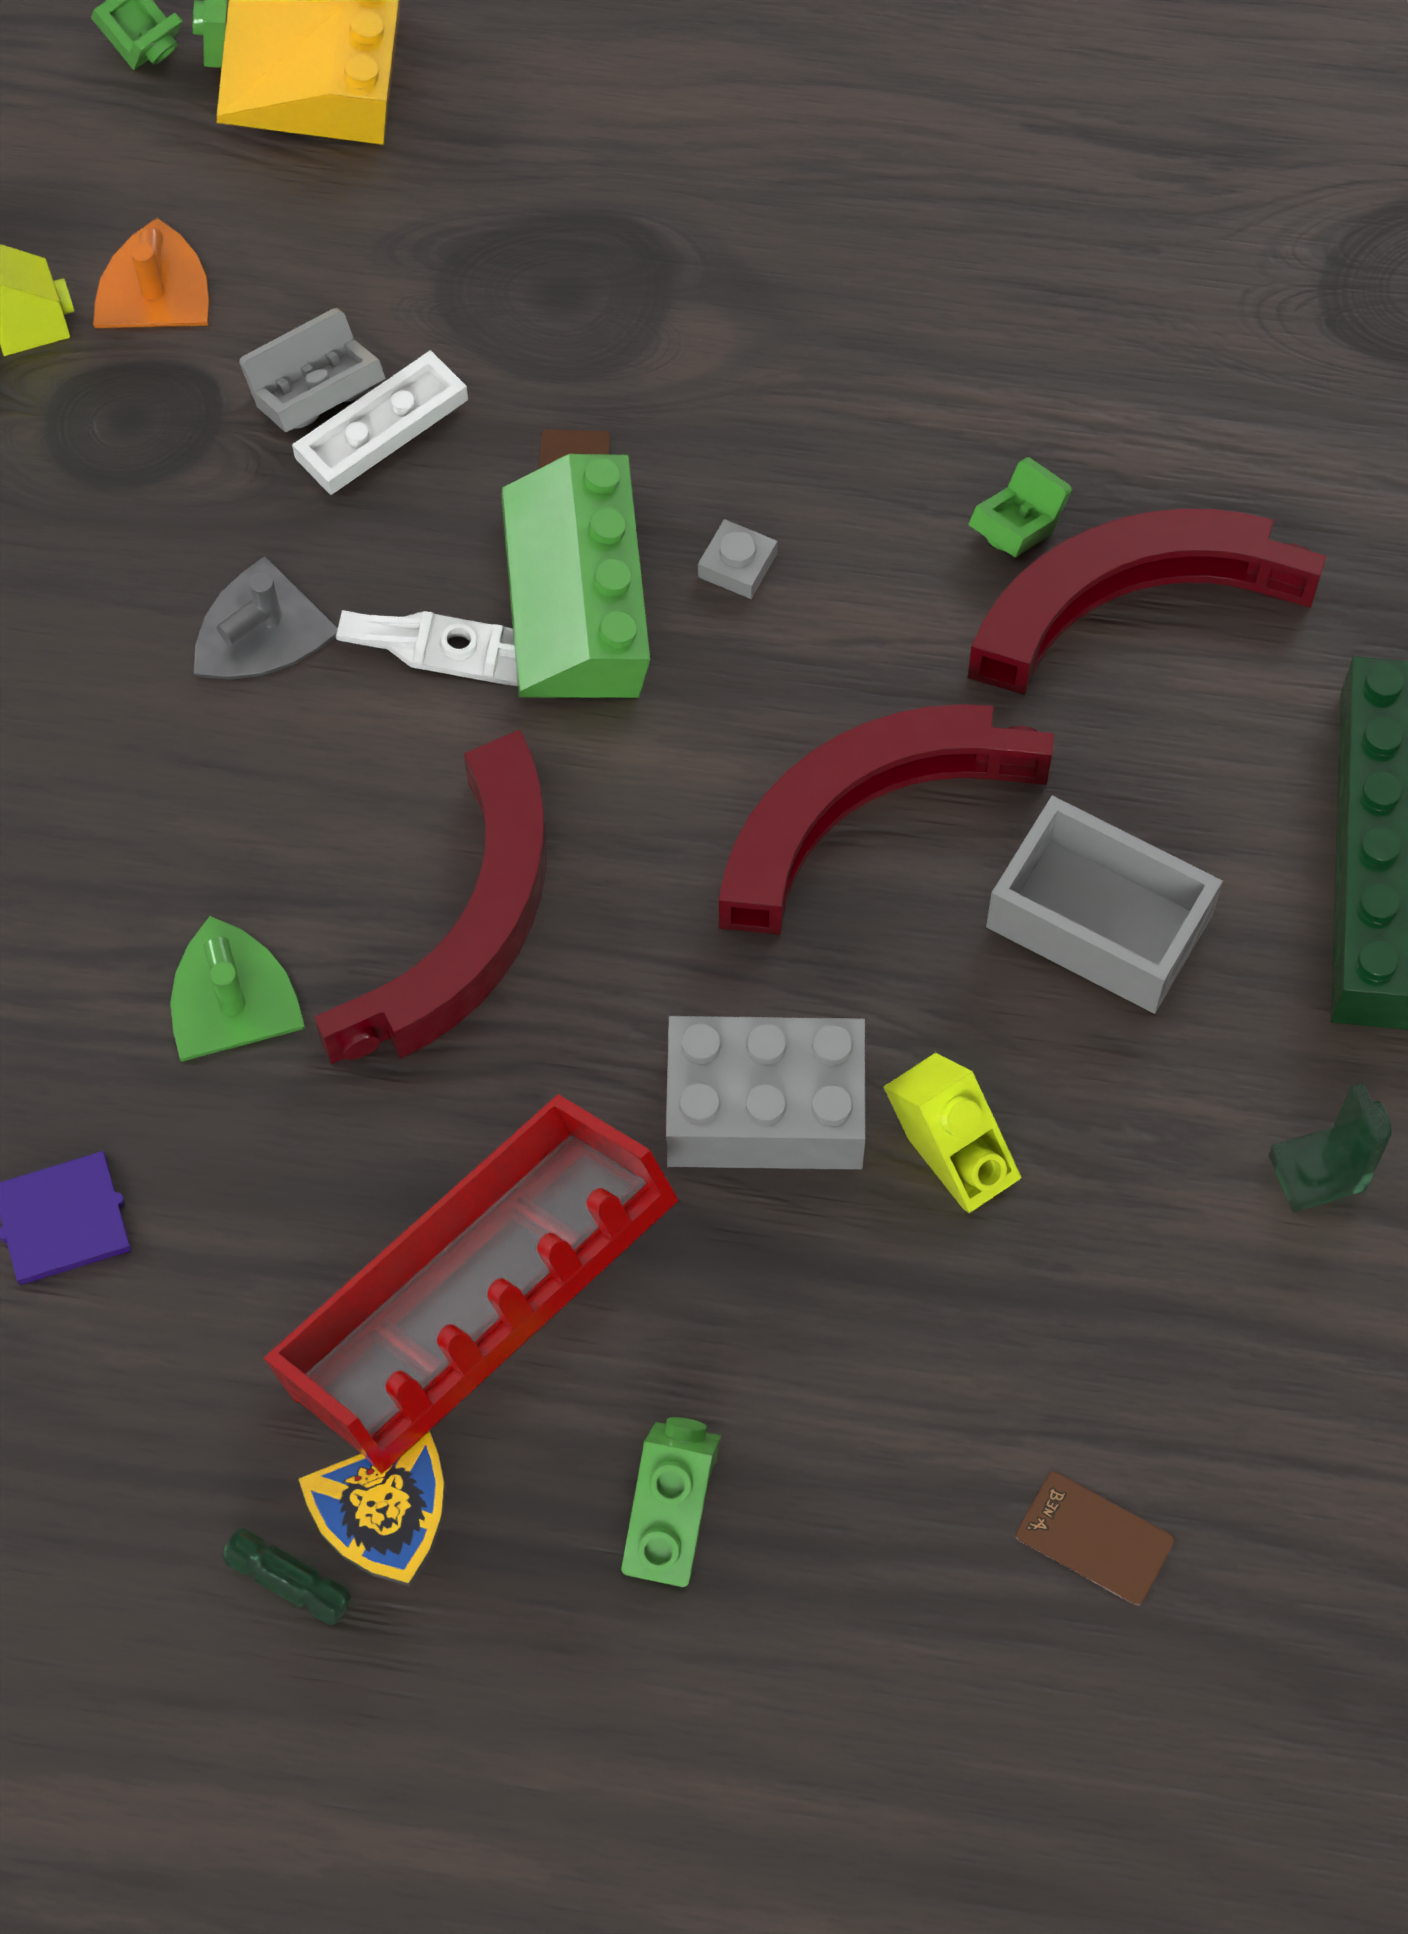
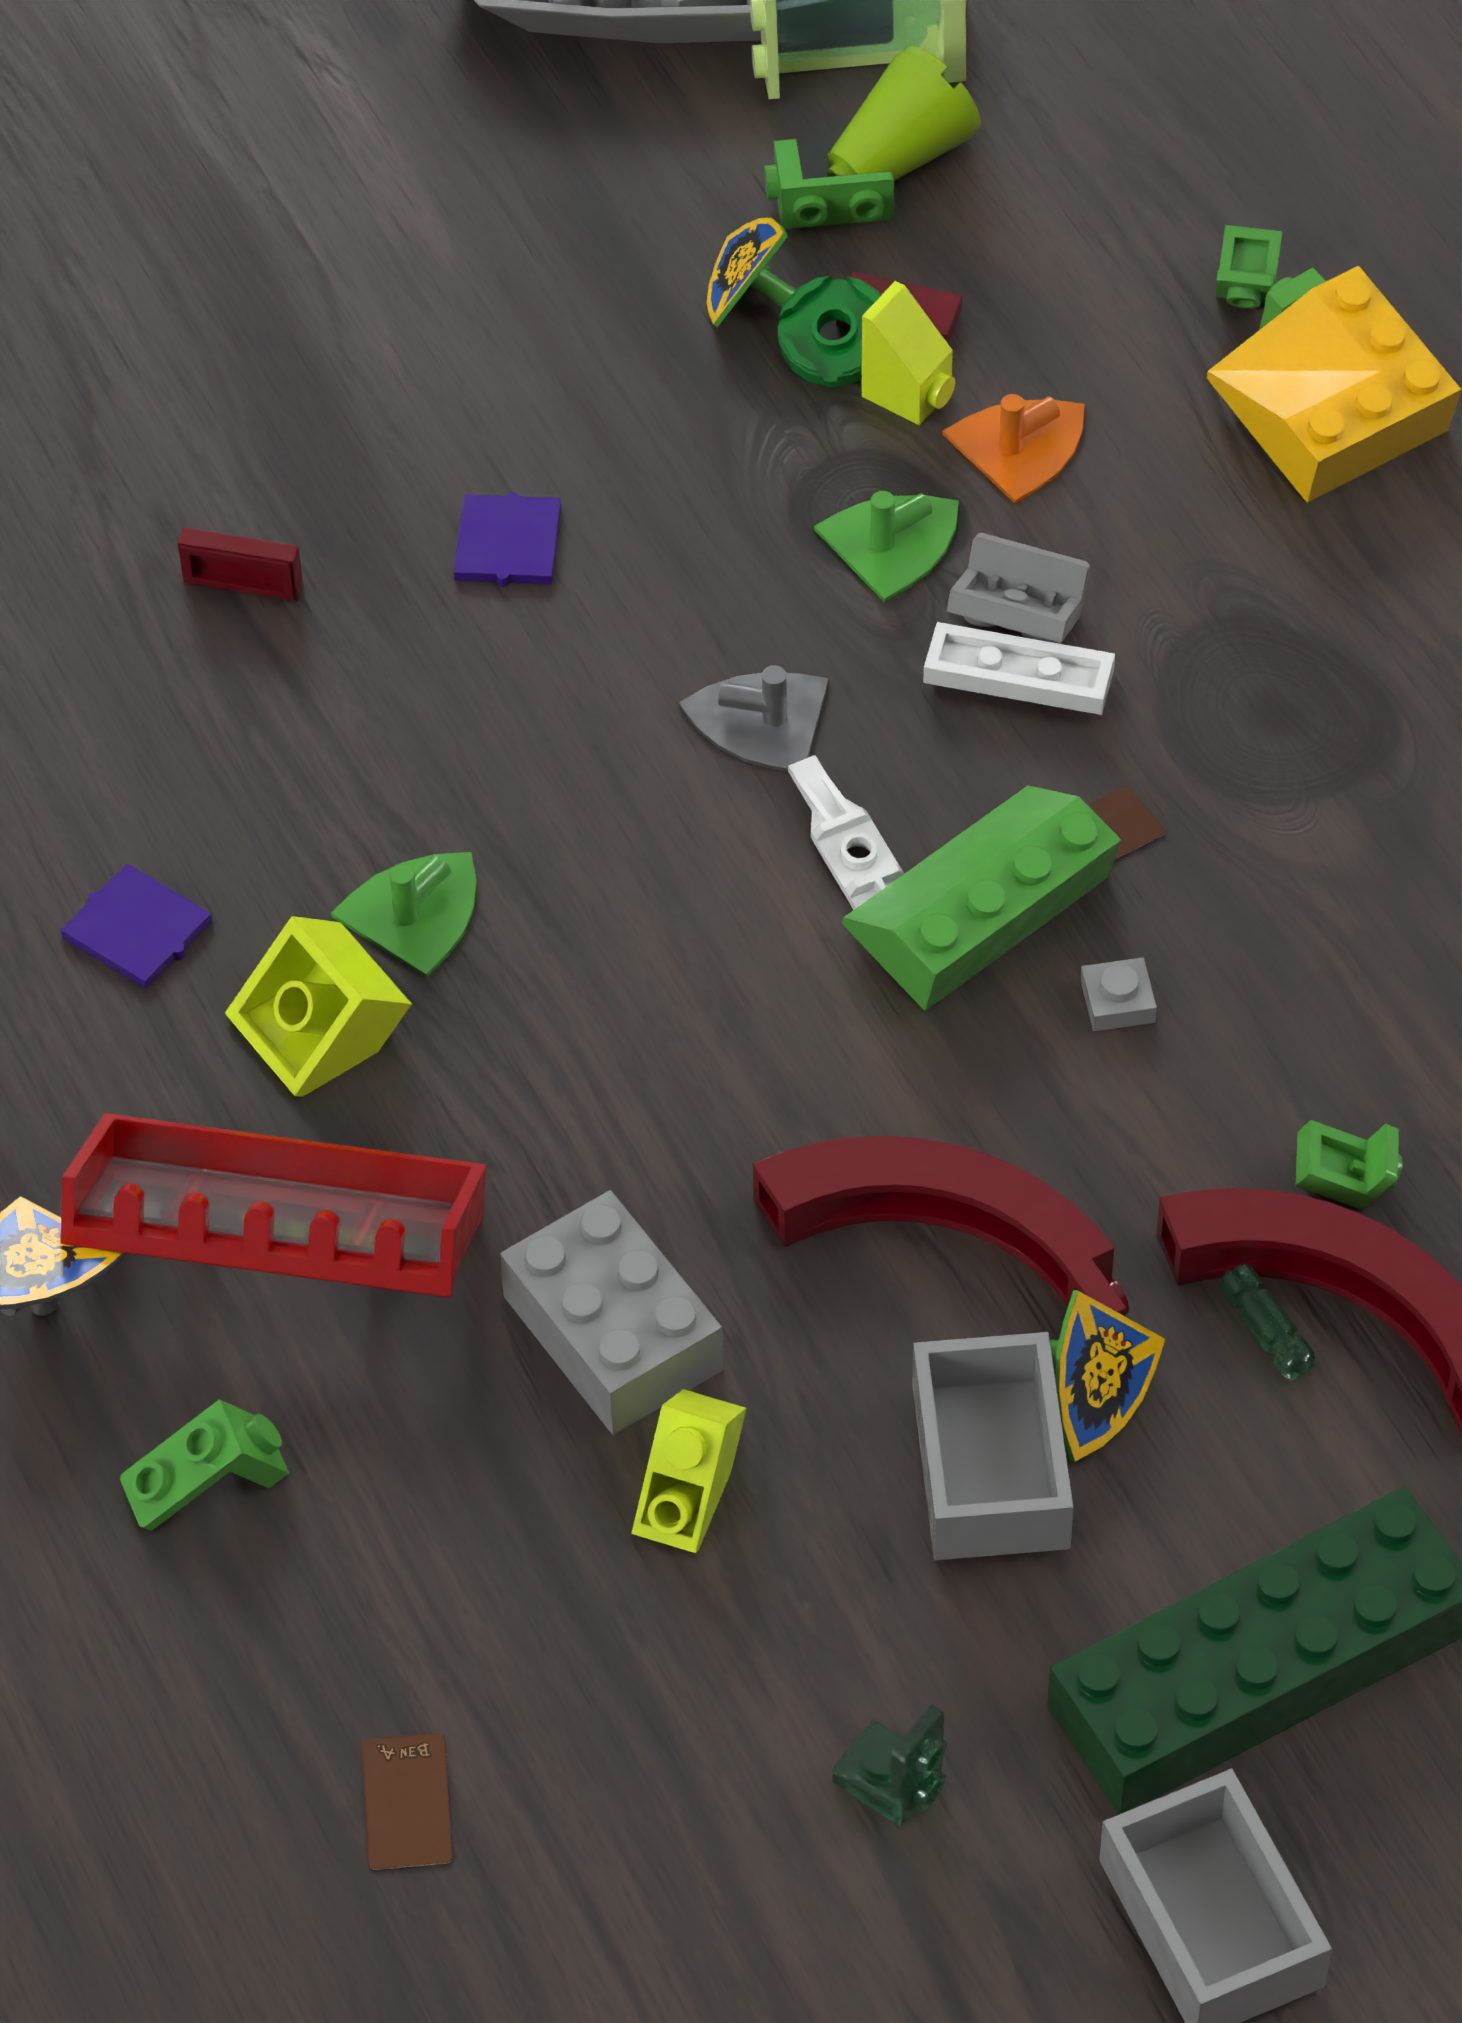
camera: 55 degrees right, 10 degrees down
(166, 427) = (892, 538): none -> bright green shield
(279, 1127) = (316, 1004): none -> neon yellow slope
(486, 936) = (613, 1031): dark red arch -> none
(1079, 783) = (1100, 1372): none -> shield
(1111, 656) = (1268, 1321): none -> clear green axle

